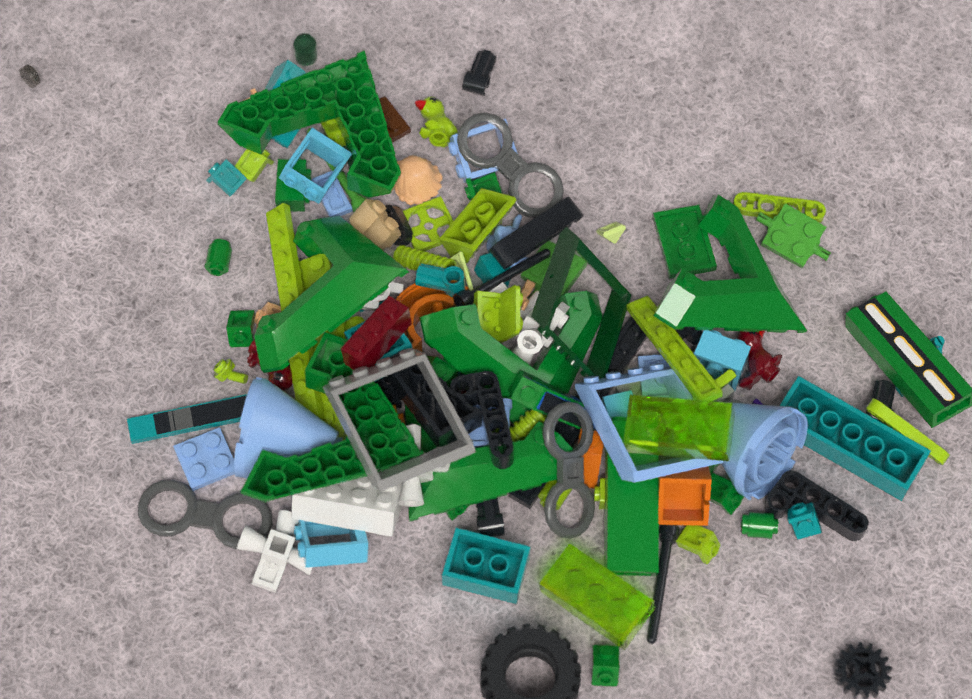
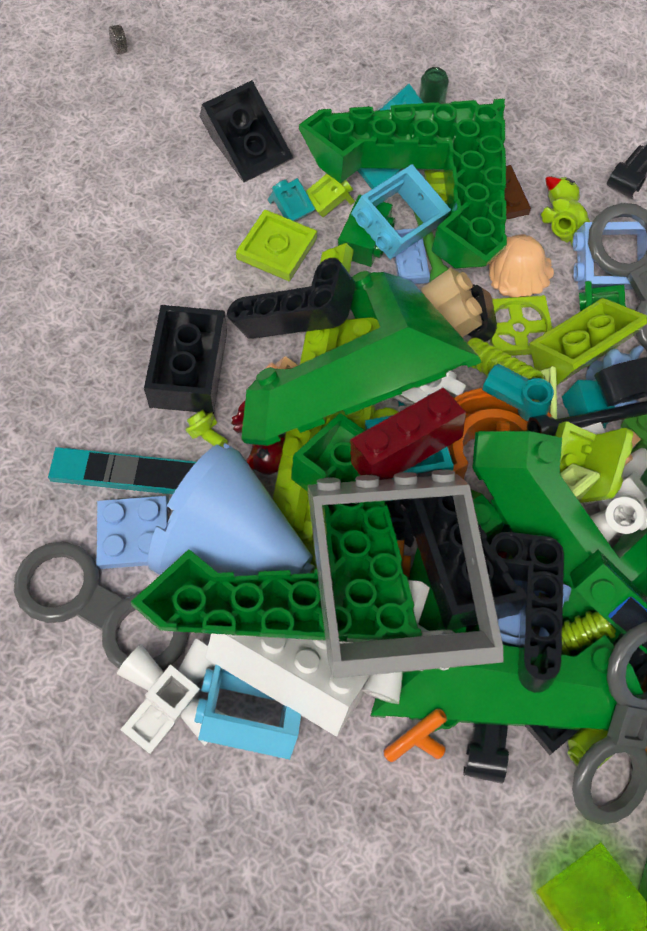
camera: 20 degrees right, 0 degrees up
(169, 131) = (245, 131): none -> black slope
(197, 326) = (186, 359): none -> black brick
(218, 257) = (248, 282): green brick -> none
(228, 216) = (276, 245): none -> lime plate
(240, 328) = (238, 377): green bracket -> none
(281, 260) = (300, 309): none -> black beam
(443, 524) = (420, 737): none -> orange piece
(486, 565) = (464, 829): teal brick -> none
(496, 327) = (579, 479): none -> yellowish green slope

